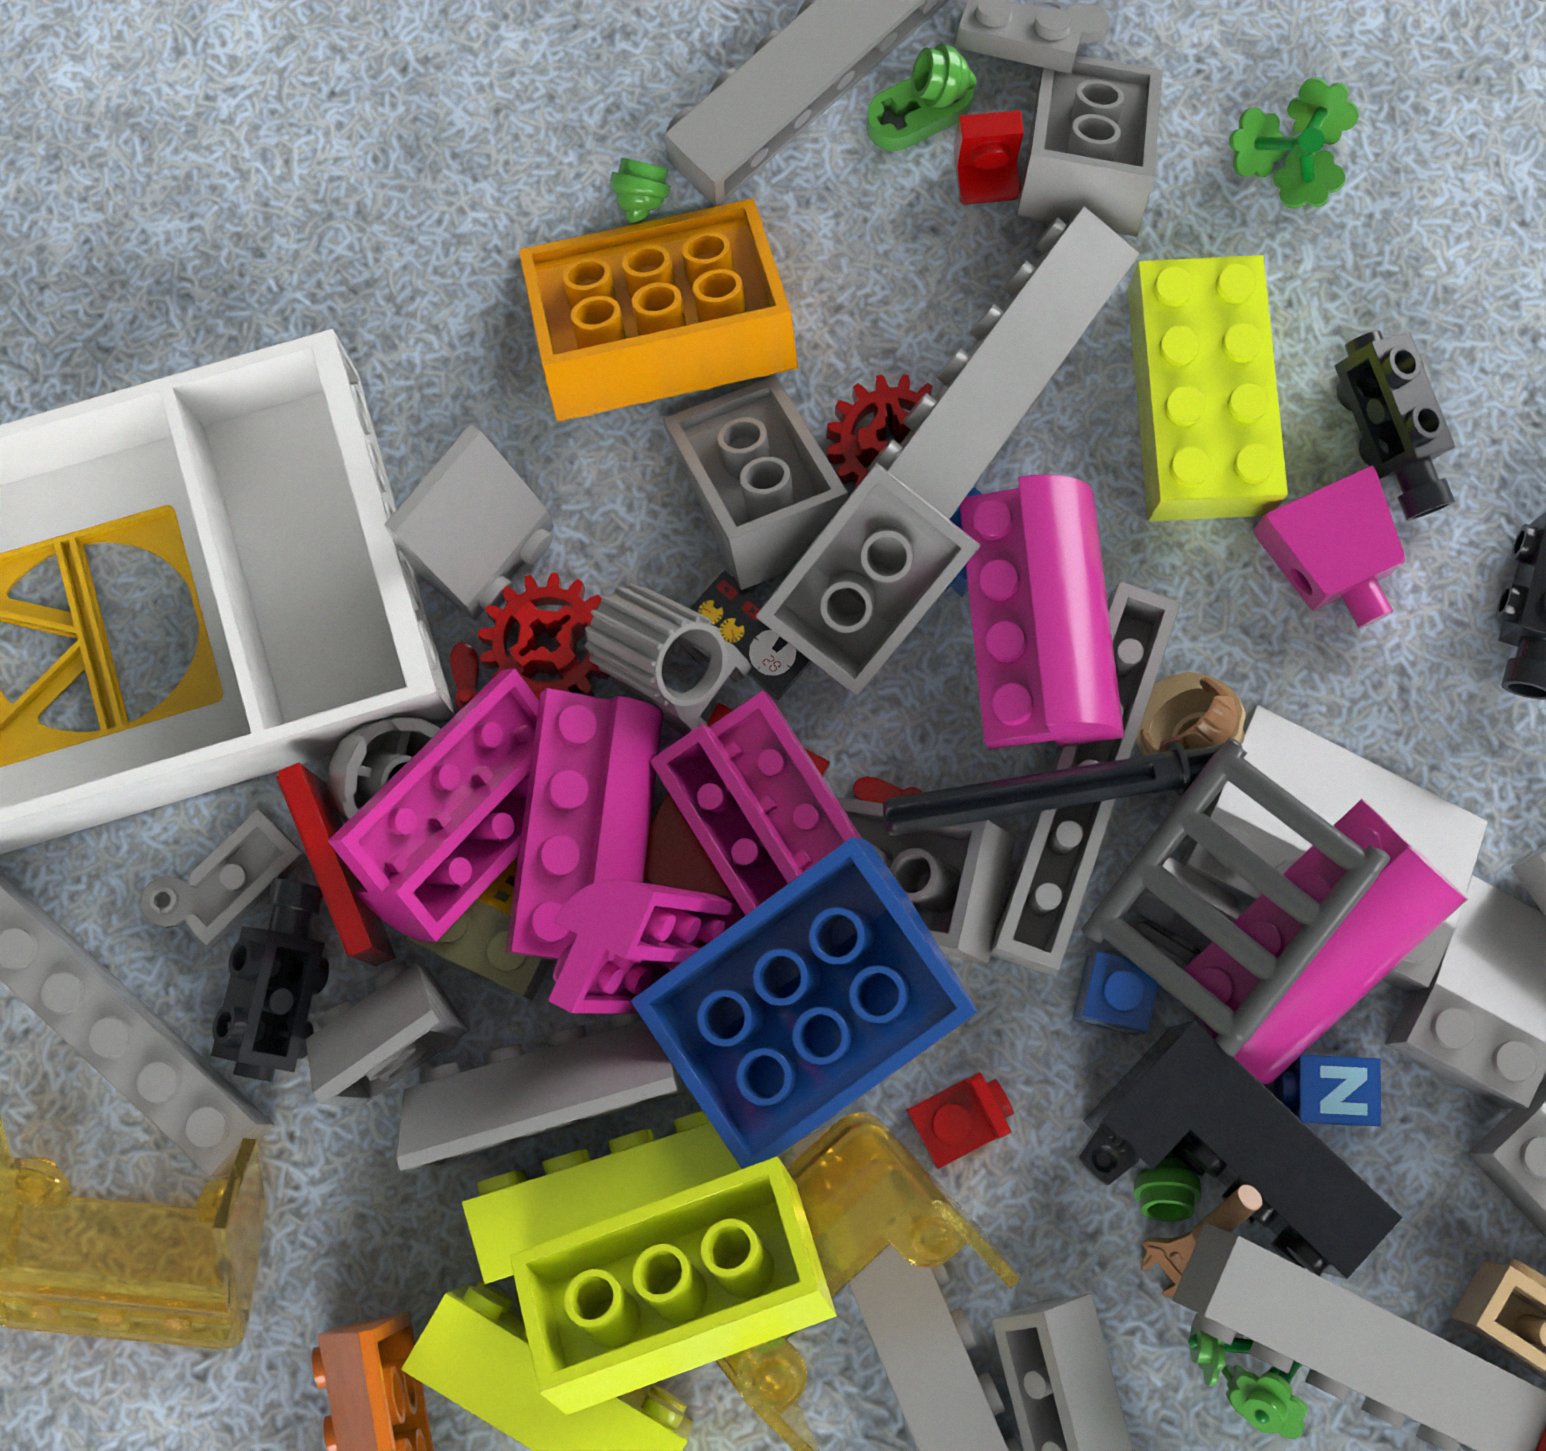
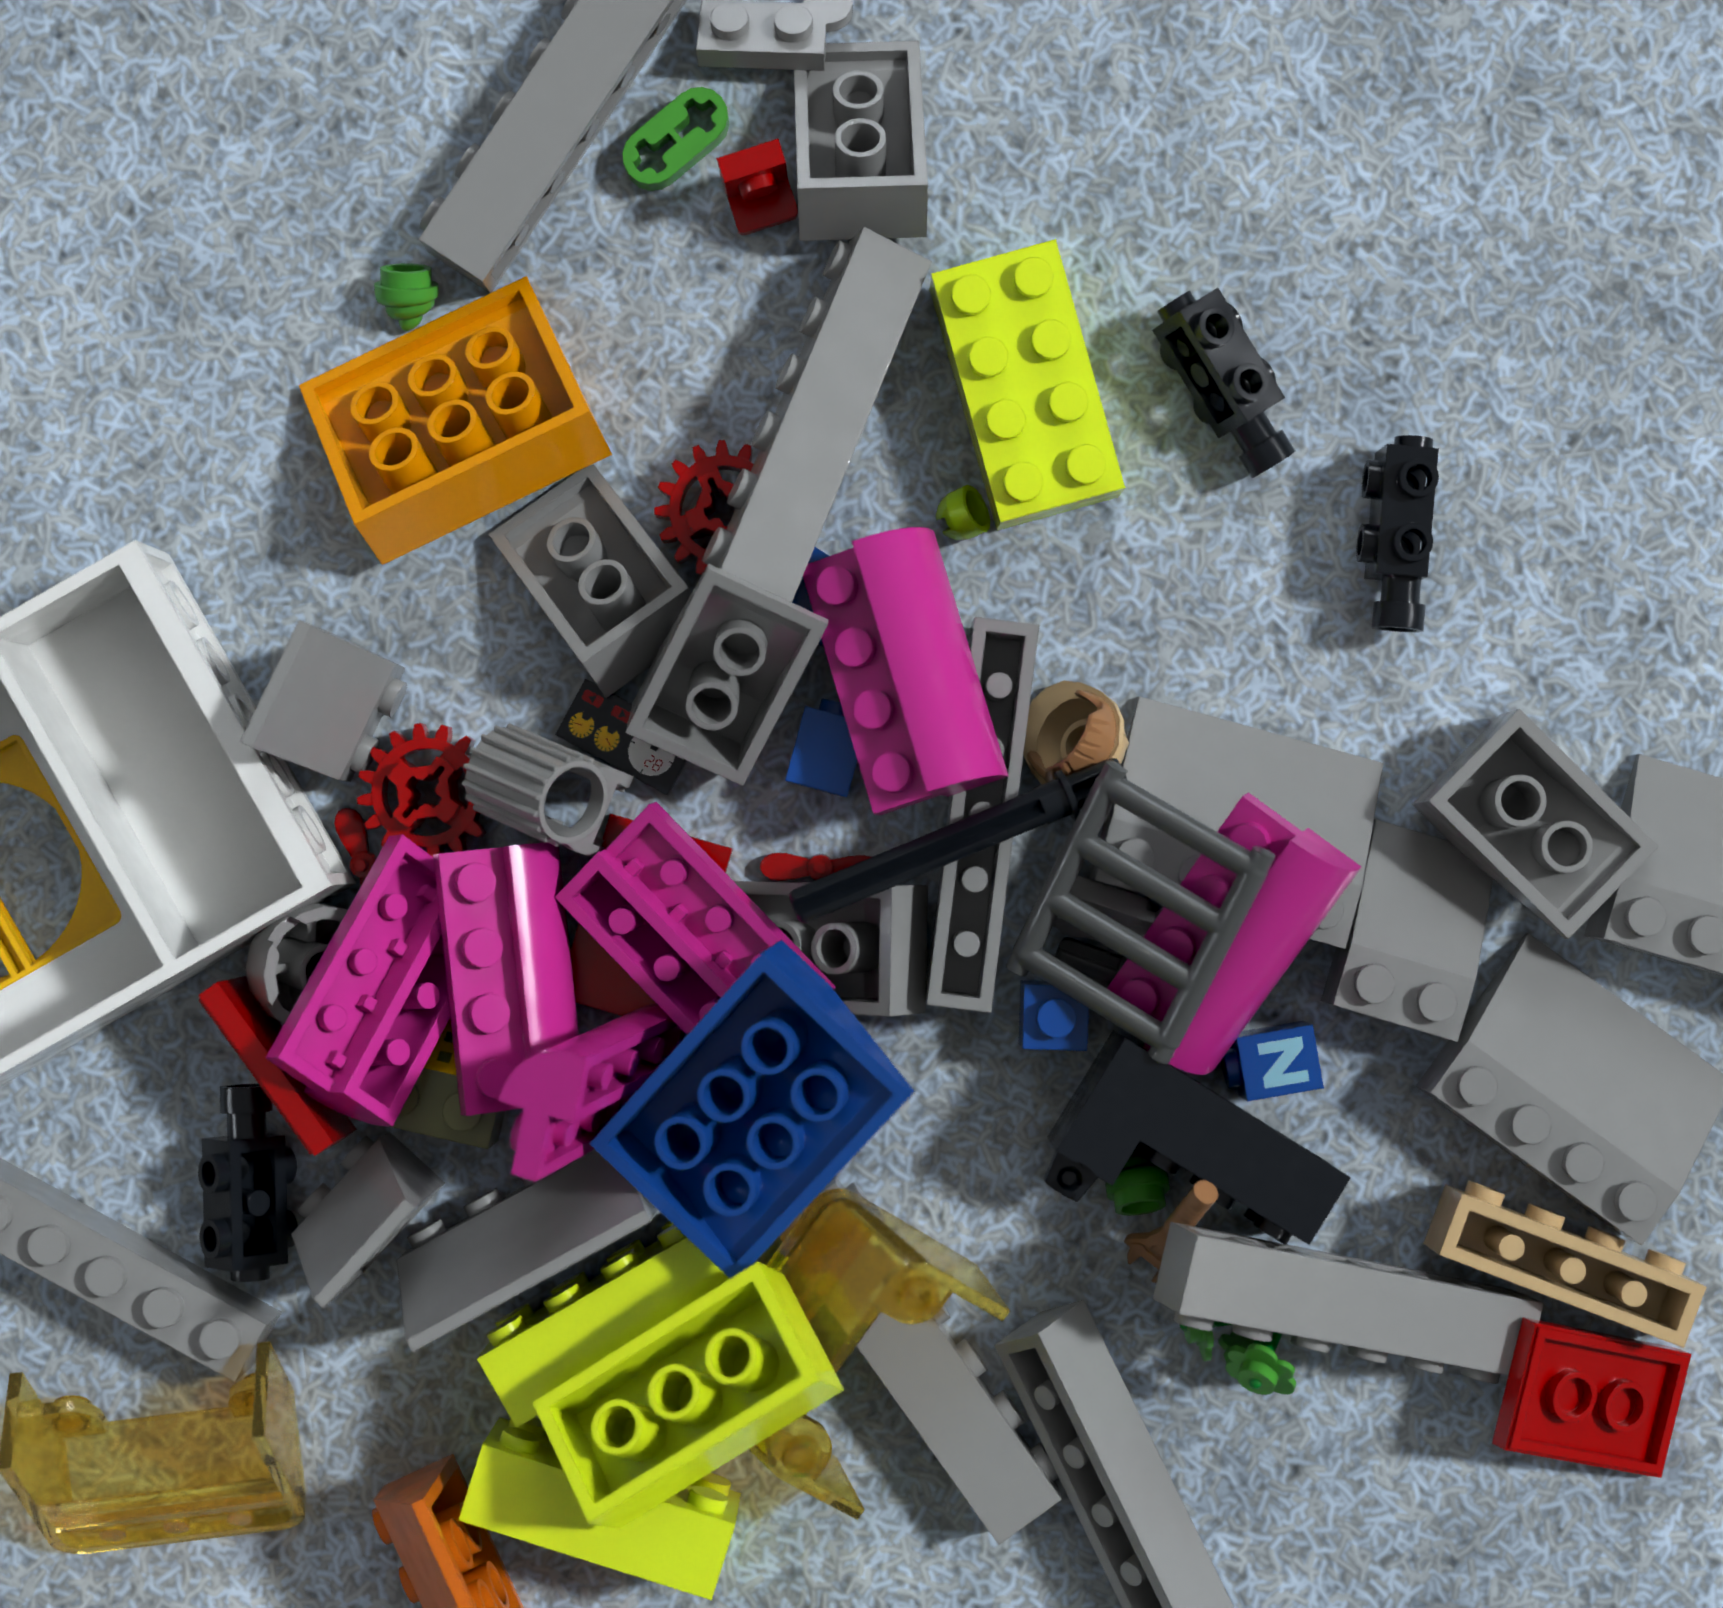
camera: 15 degrees left, 10 degrees up
(225, 882) = (174, 1096): light grey hinge -> none
(941, 76) = (690, 110): bright green plate -> none
(941, 686) = (823, 751): none -> blue brick
(961, 1118) = (930, 1163): red bracket -> none
(1121, 494) = (964, 513): none -> lime hinge
(1320, 118) = (1089, 126): bright green plant -> none
(1337, 545) = (1187, 520): dark pink torso -> none

